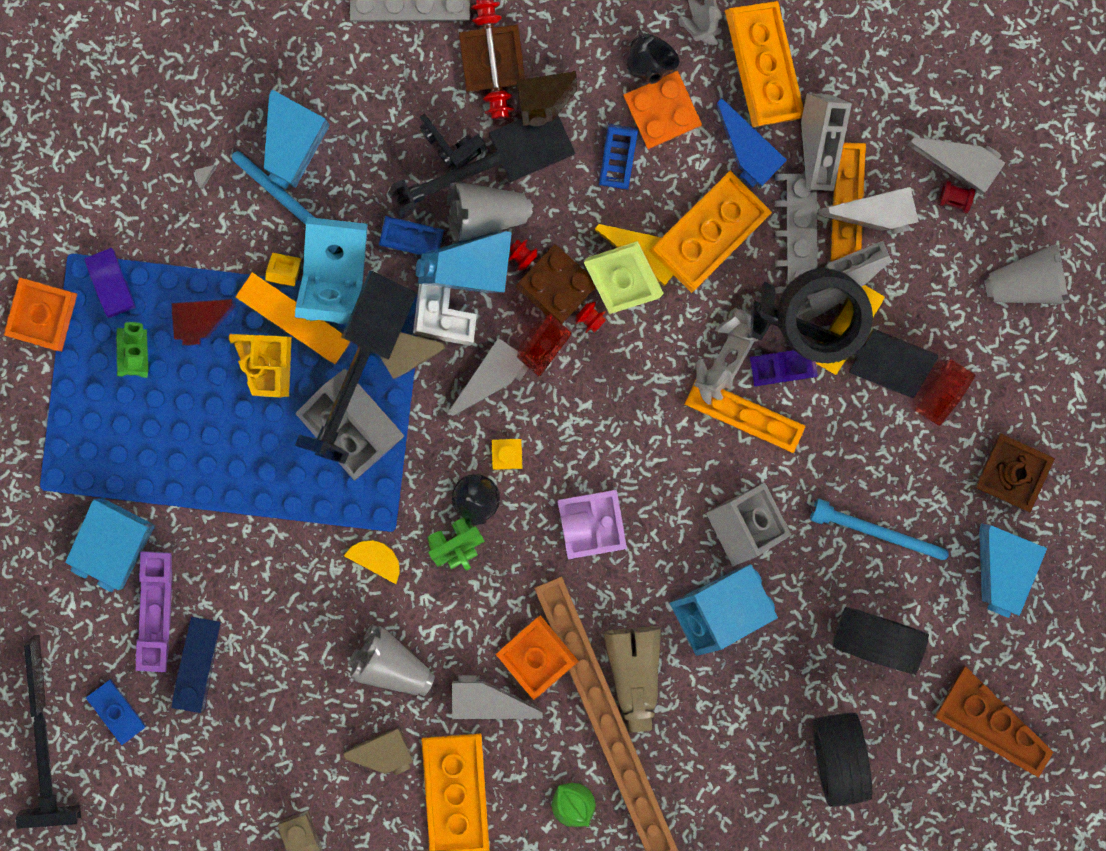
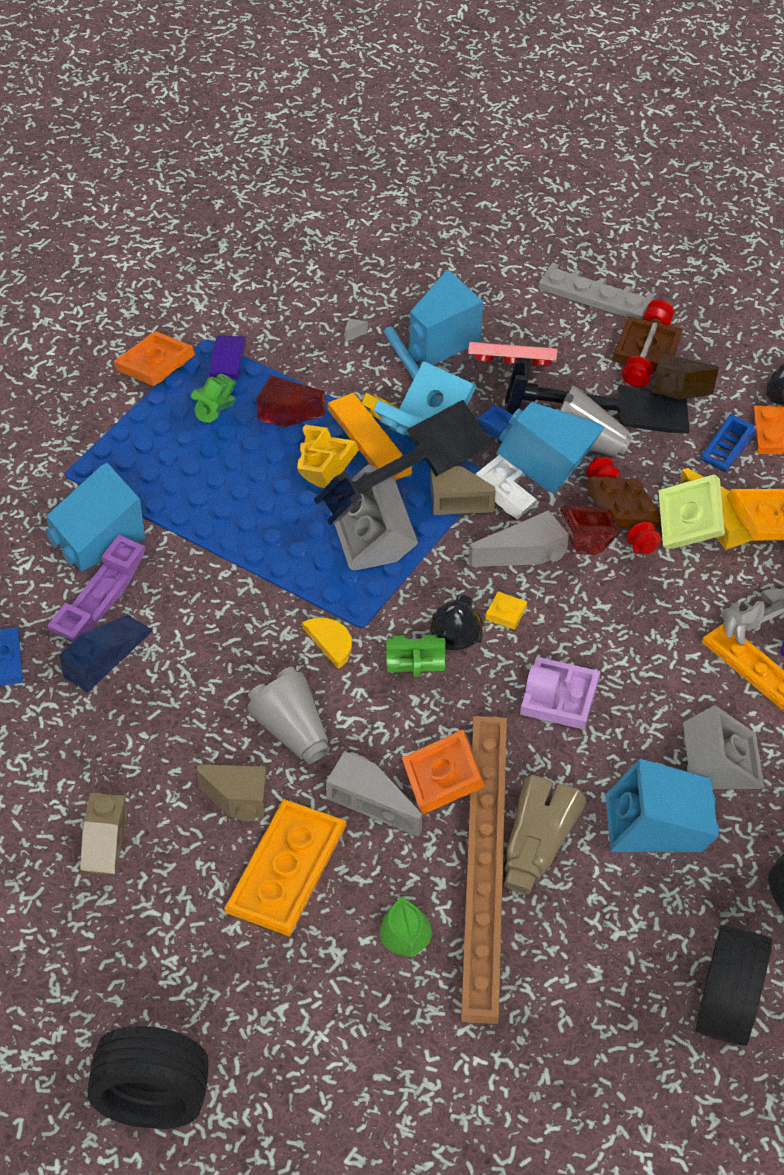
camera: 30 degrees right, 40 degrees down
(377, 152) = (487, 351): none -> plate
(467, 148) = (588, 374): black bracket -> none

